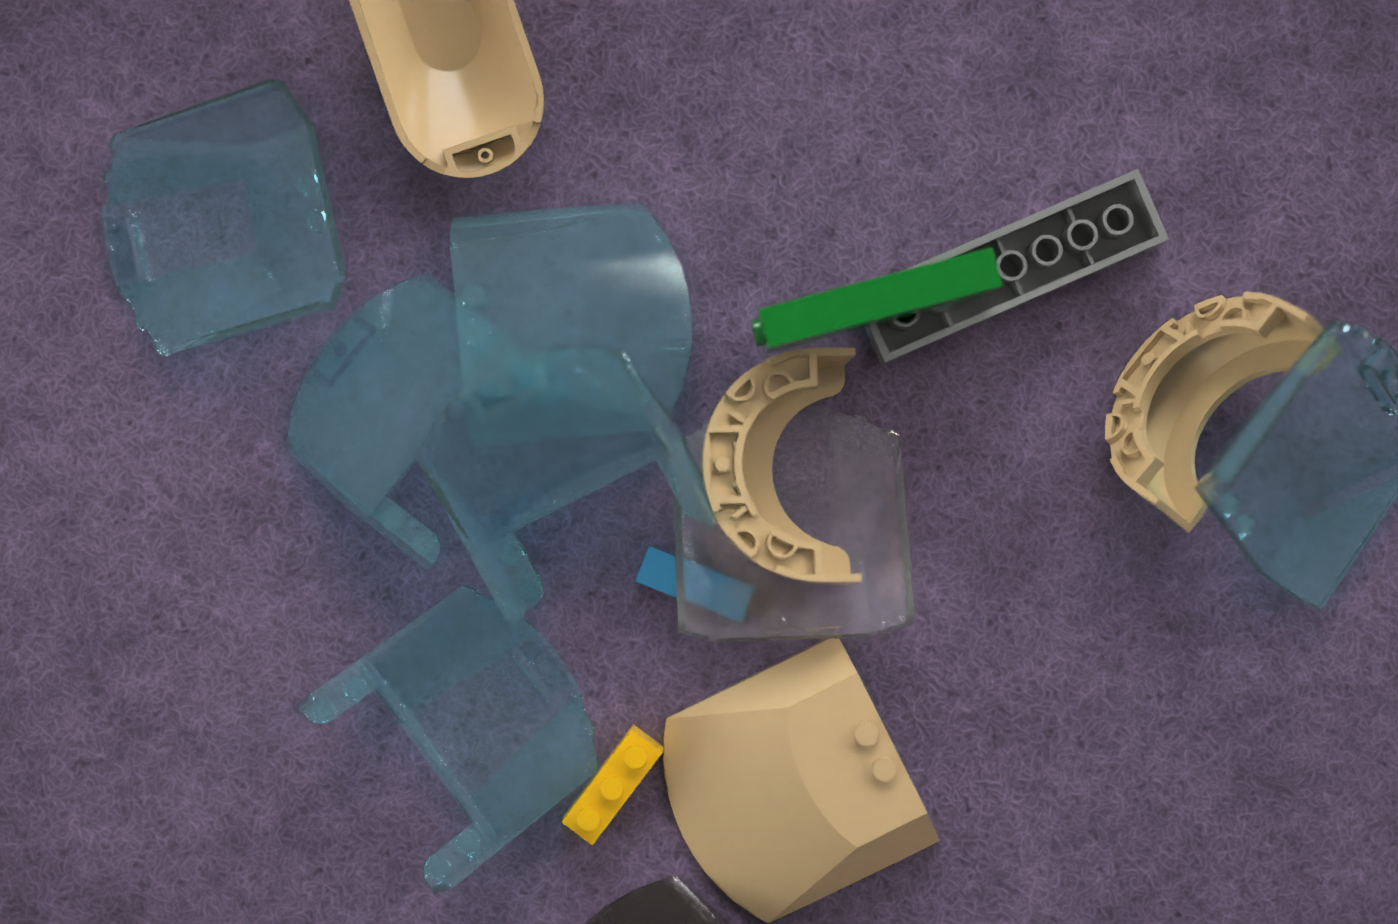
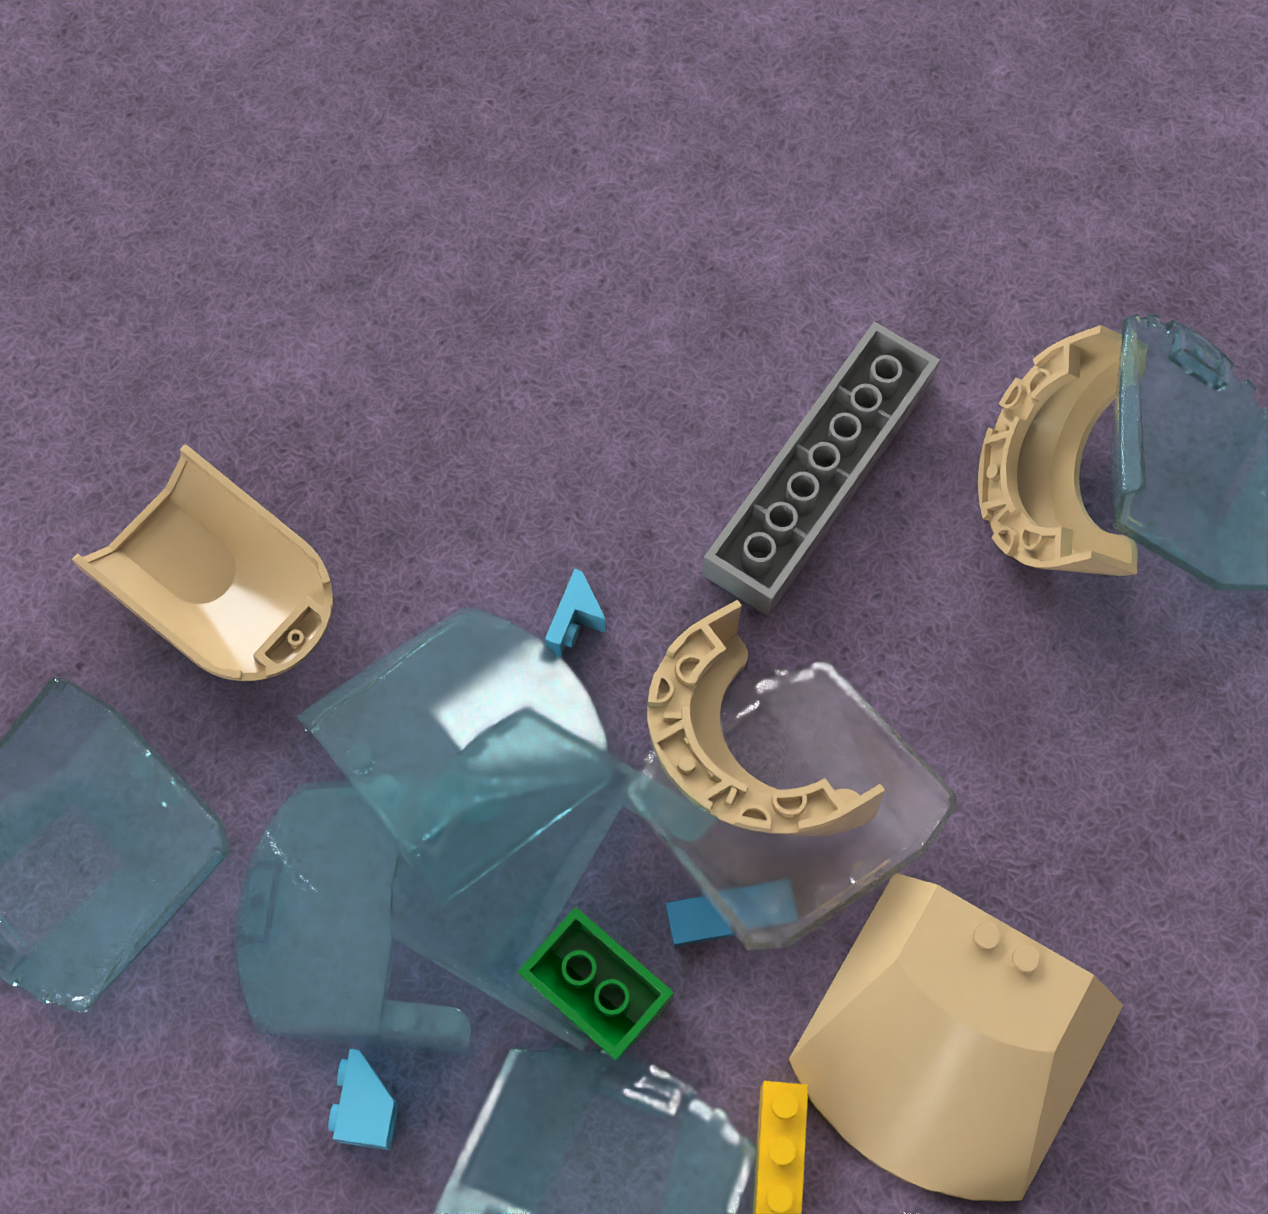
camera: 35 degrees left, 20 degrees down
(334, 557) = (365, 1108): none -> medium azure slope
(553, 579) = (596, 984): none -> green slope
(730, 260) = (576, 606): none -> medium azure slope
(877, 301) = (728, 543): green brick -> none

